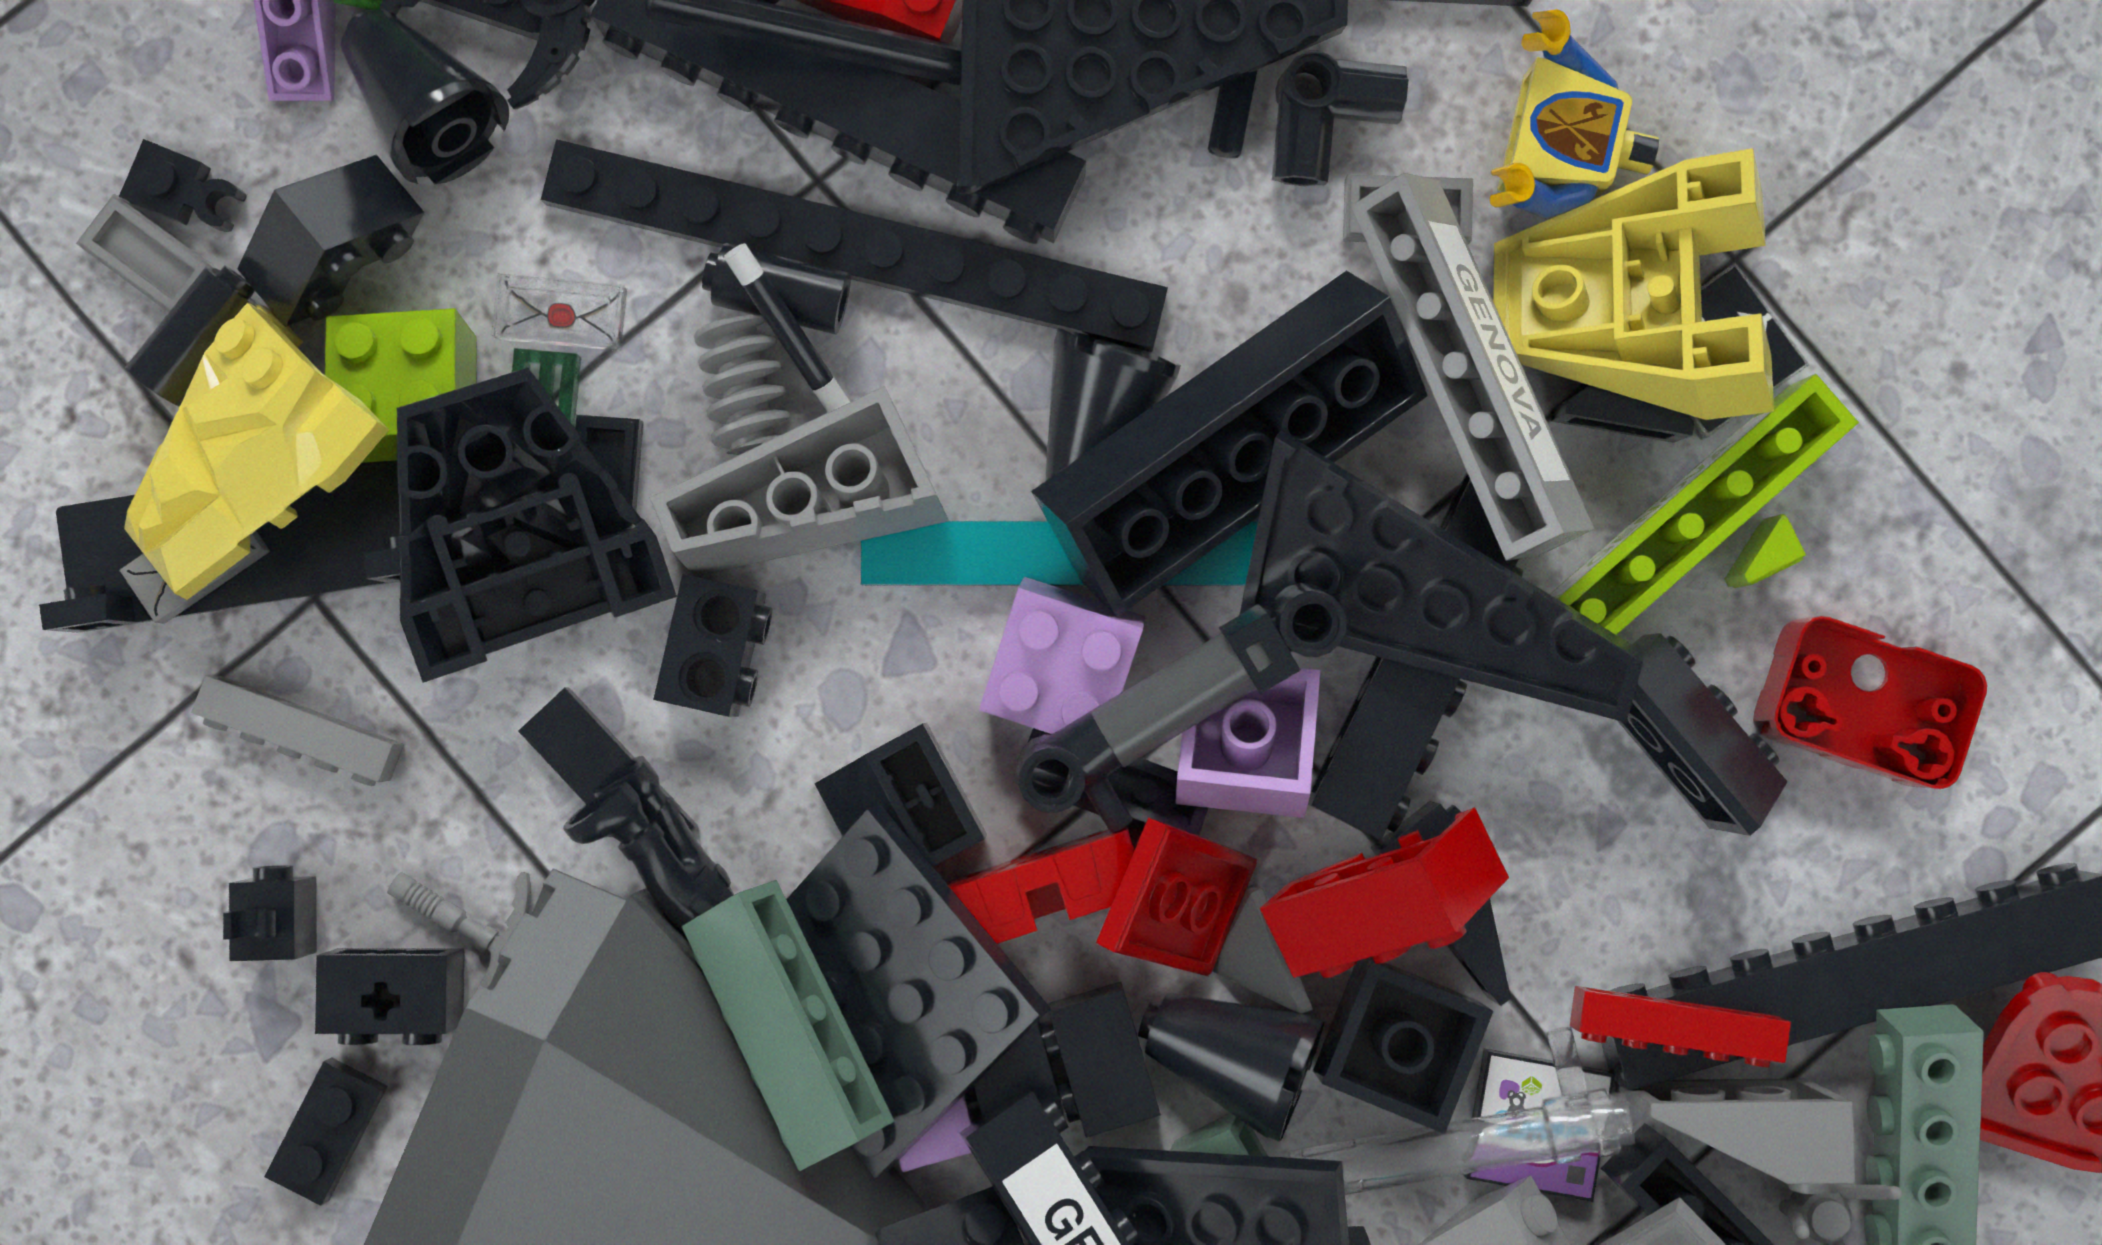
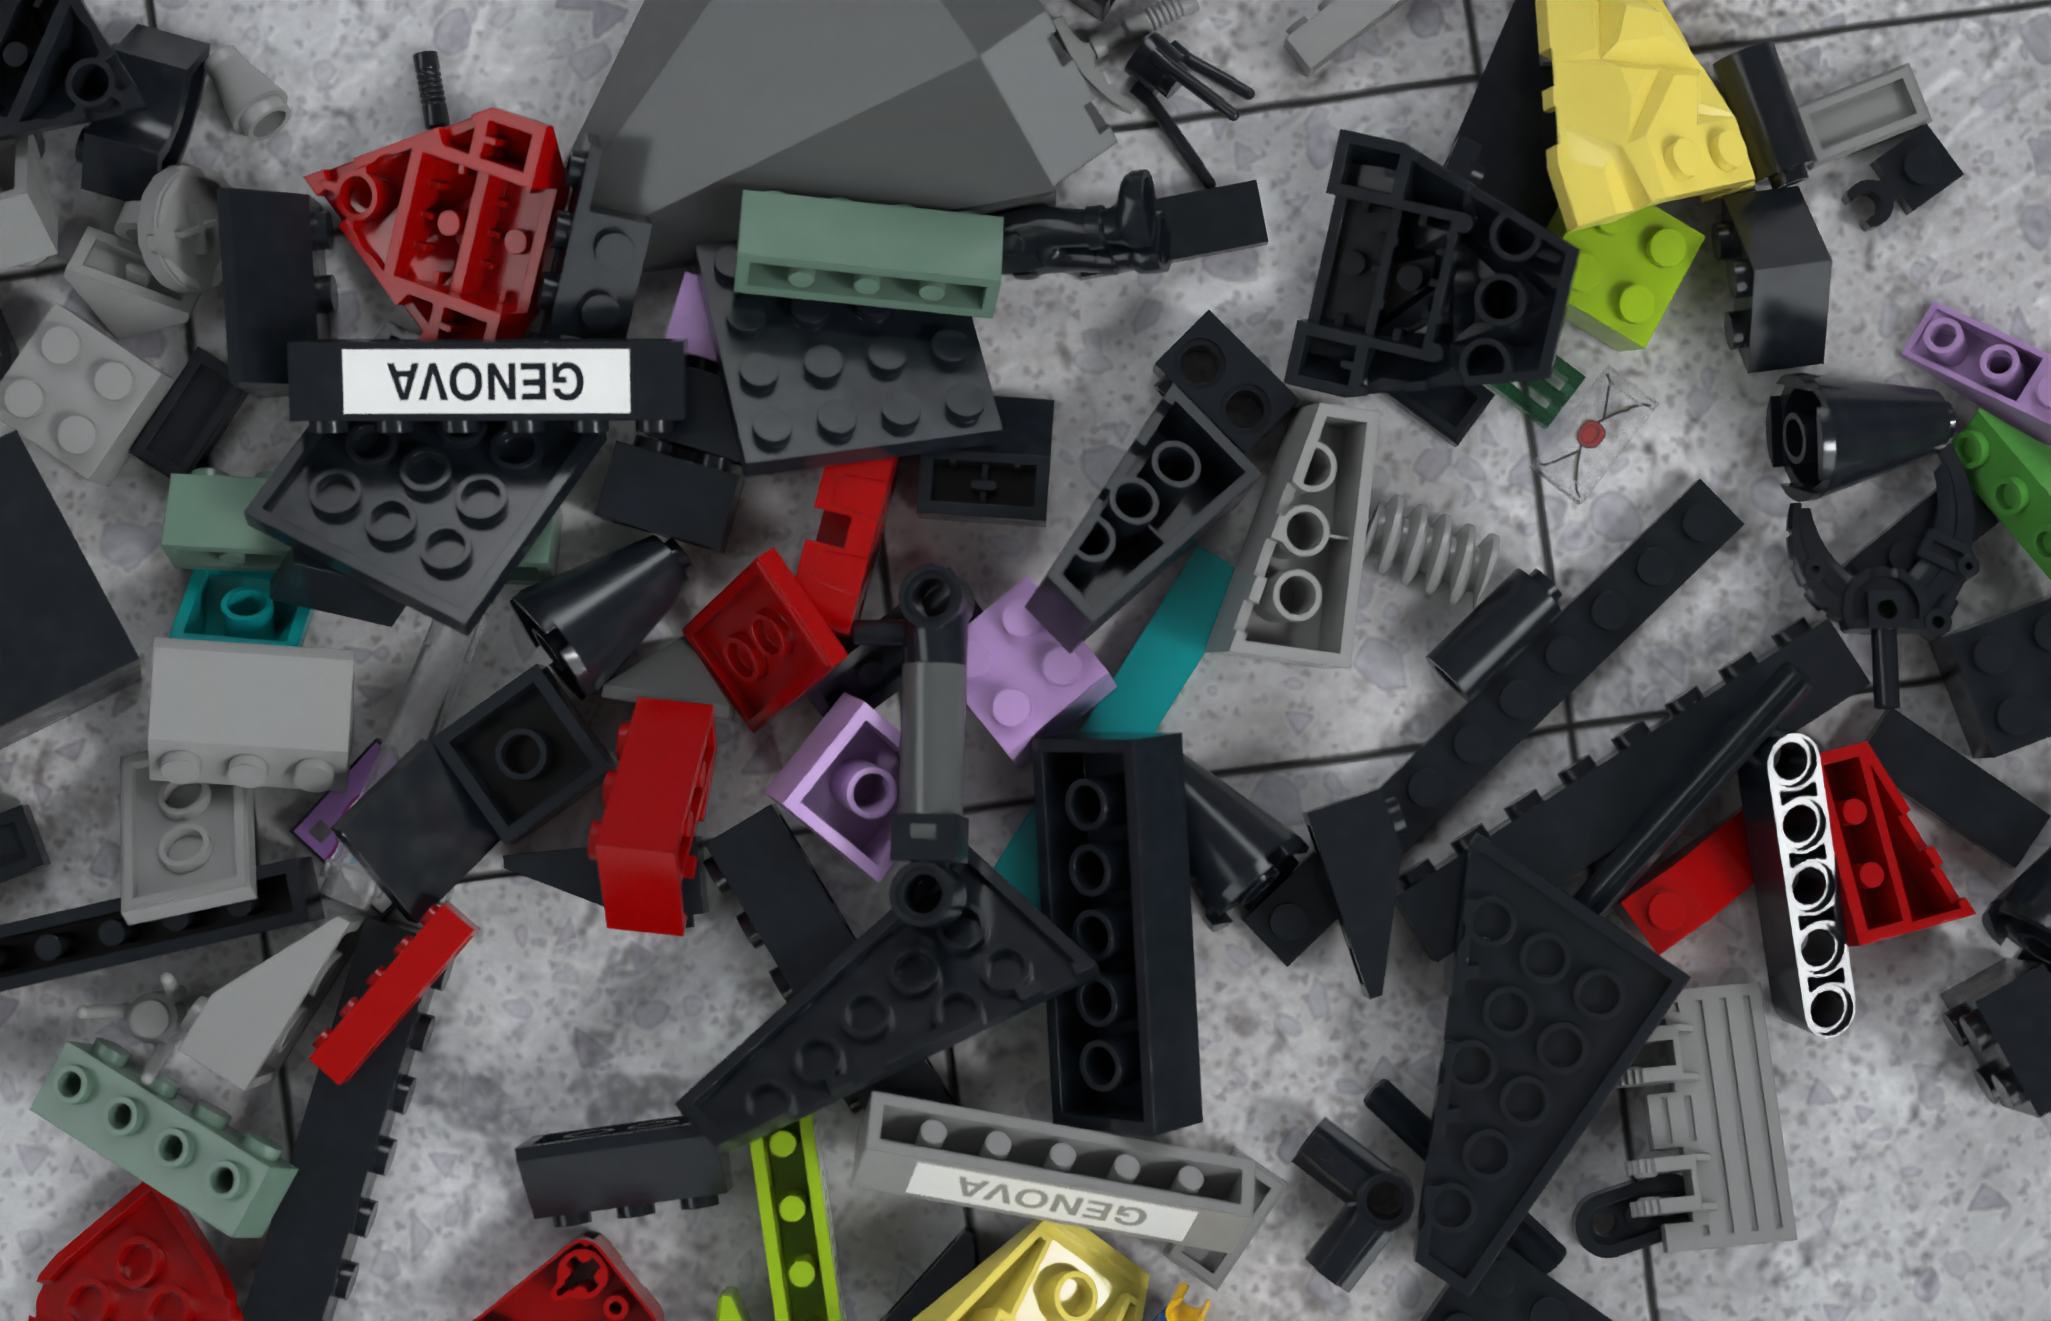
camera: 125 degrees right, 0 degrees up
(471, 869) = (1164, 69): none -> black plant
(785, 327) = (1452, 617): black bar -> none
(858, 641) = (1151, 510): none -> black wedge
(1049, 271) = (1361, 869): none -> black slope
(1530, 1095) = (417, 831): none -> black tile

